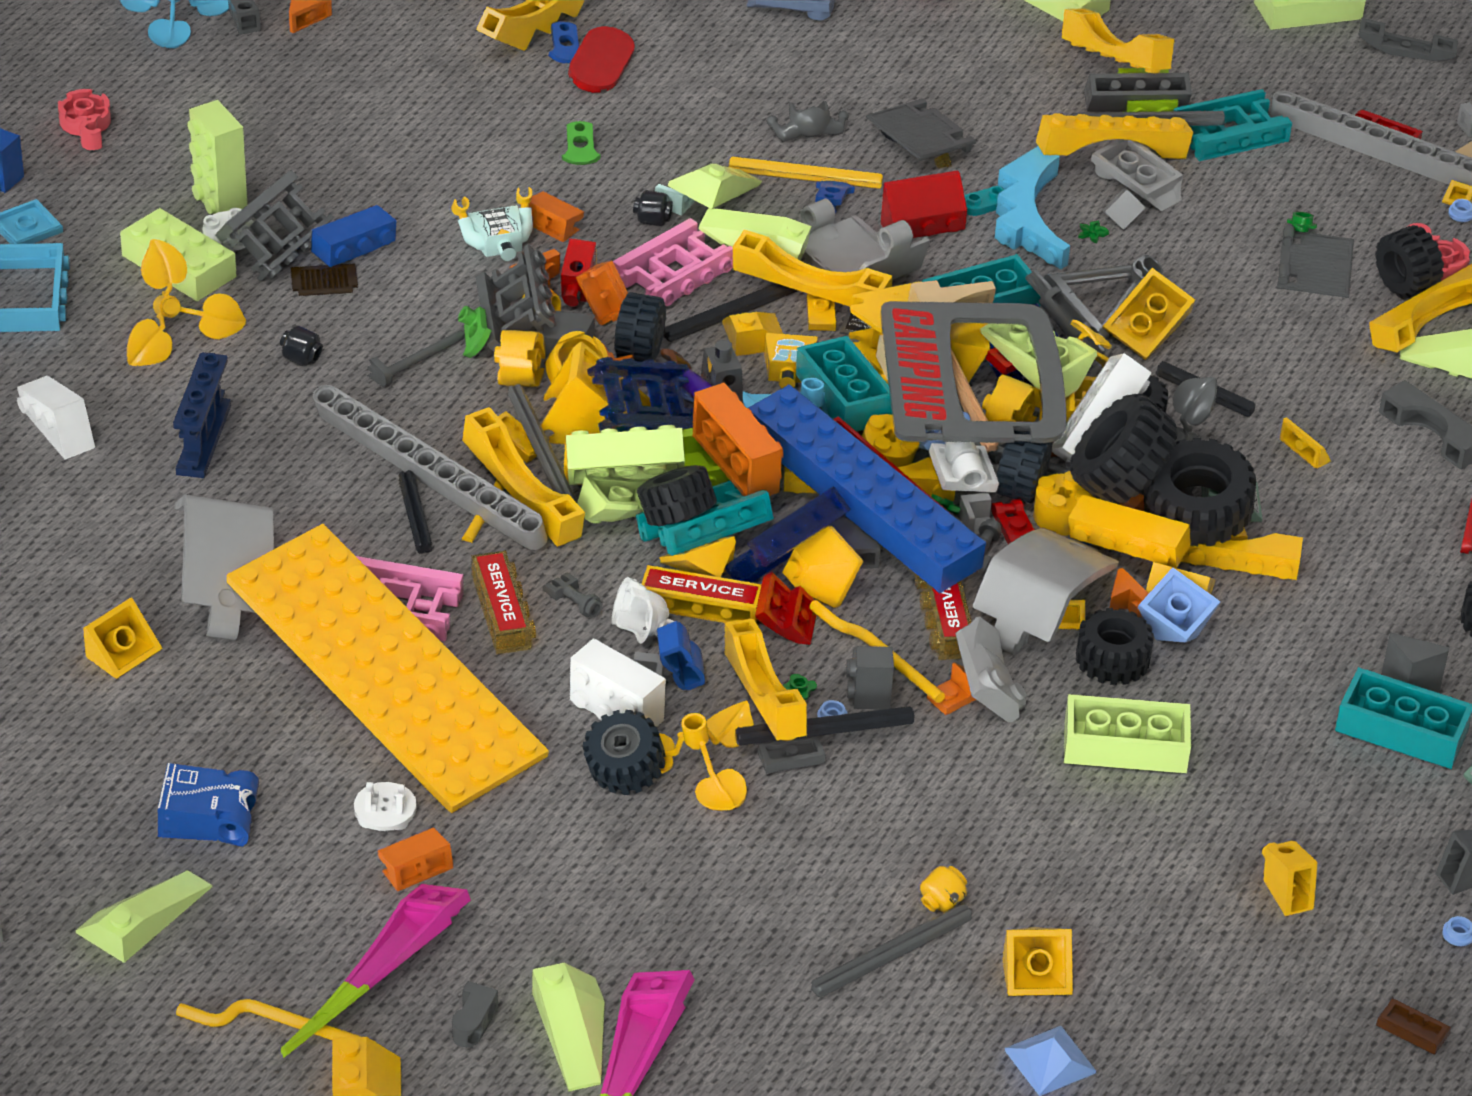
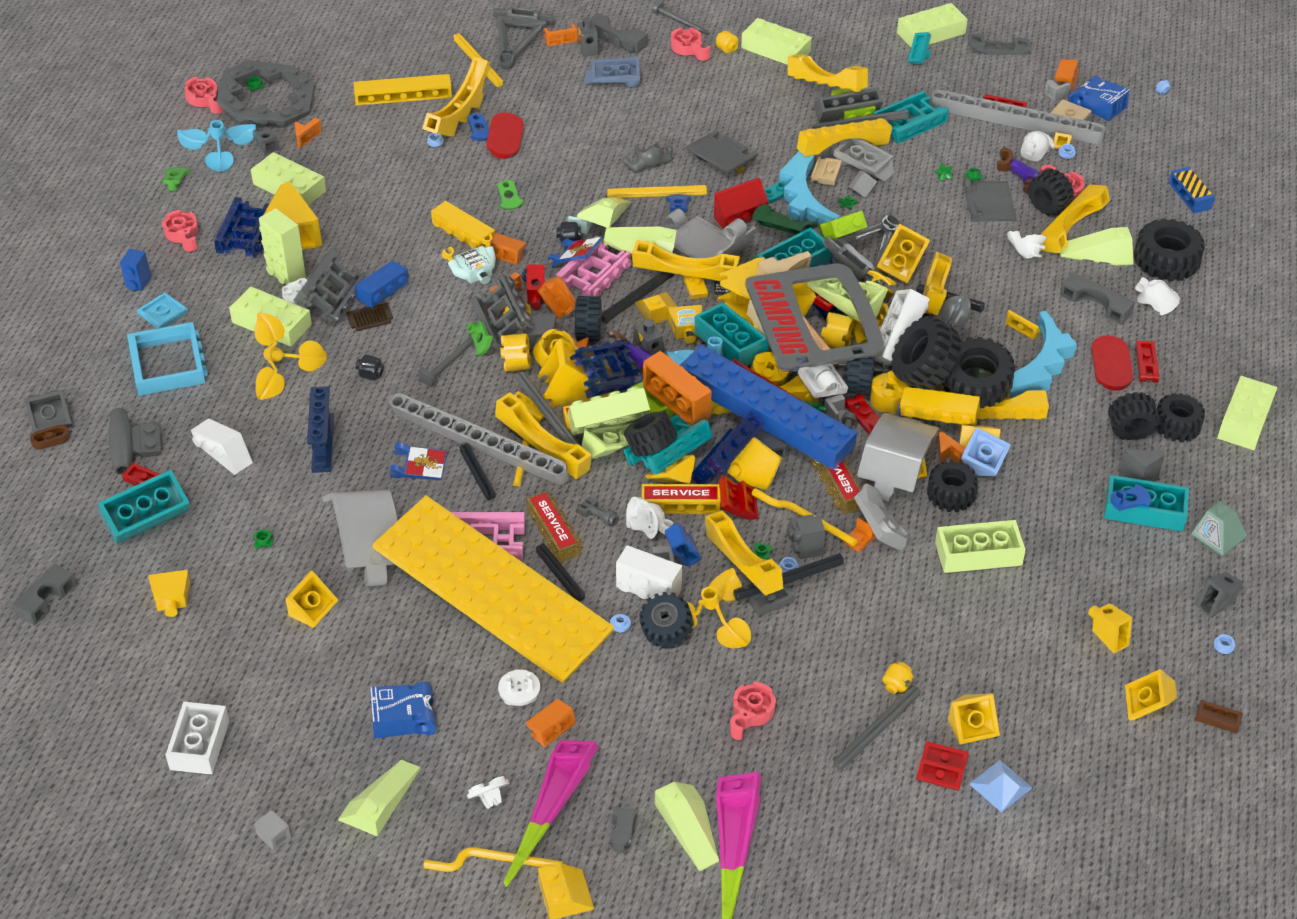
camera: 10 degrees left, 5 degrees up
(79, 549) = (263, 534): none -> green plate
(96, 44) = (174, 177): none -> bright green piece
(159, 124) = (232, 227): none -> clear blue fence
(260, 73) = (279, 170): none -> yellowish green brick
(261, 128) = (293, 206): none -> yellow ladder
(296, 928) = (489, 794): none -> white plate
(335, 486) = (420, 462): none -> flag
(493, 666) = (560, 572): none -> black axle
(494, 171) = (460, 224): none -> yellow brick
(495, 50) = (435, 140): none -> light blue plate
(559, 747) = (620, 627): none -> light blue plate
(653, 233) = (575, 250): none -> flag
(713, 890) = (751, 707): none -> coral piece
(963, 234) = (770, 218): none -> dark green slope
(971, 1018) = (942, 765): none -> red slope
(1068, 257) = (843, 225): none -> lime panel
(1074, 182) = (826, 171): none -> tan plate
(1183, 361) = (935, 282): none -> yellow arch
(1257, 211) = (944, 172): none -> green plant
(1277, 28) = (919, 48): none -> teal tile
(1318, 976) = (1149, 694): none -> yellow slope
(1322, 501) = (1049, 362): none -> medium azure arch
(1349, 333) = (1027, 246): none -> white helmet
(1368, 216) = (1021, 169): none -> piece
(1393, 699) = (1141, 495): none -> blue piece
(1415, 193) = (1036, 145): none -> white helmet
(1425, 518) = (1111, 362): none -> red tile
(1425, 594) = (1134, 416): none -> black tyre

